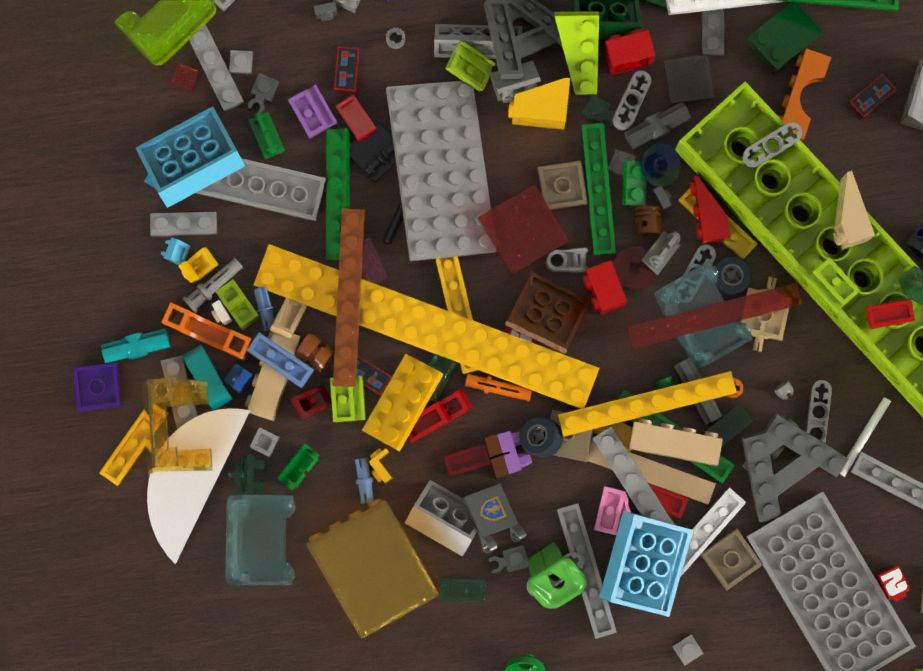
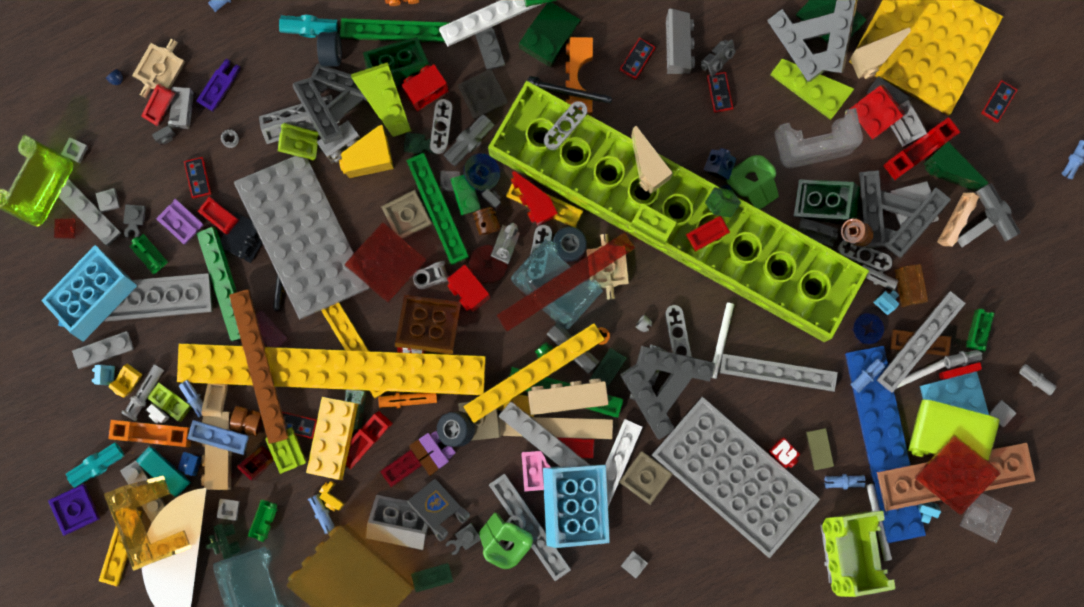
camera: 20 degrees left, 0 degrees up
(788, 108) = (569, 91): none -> black piece

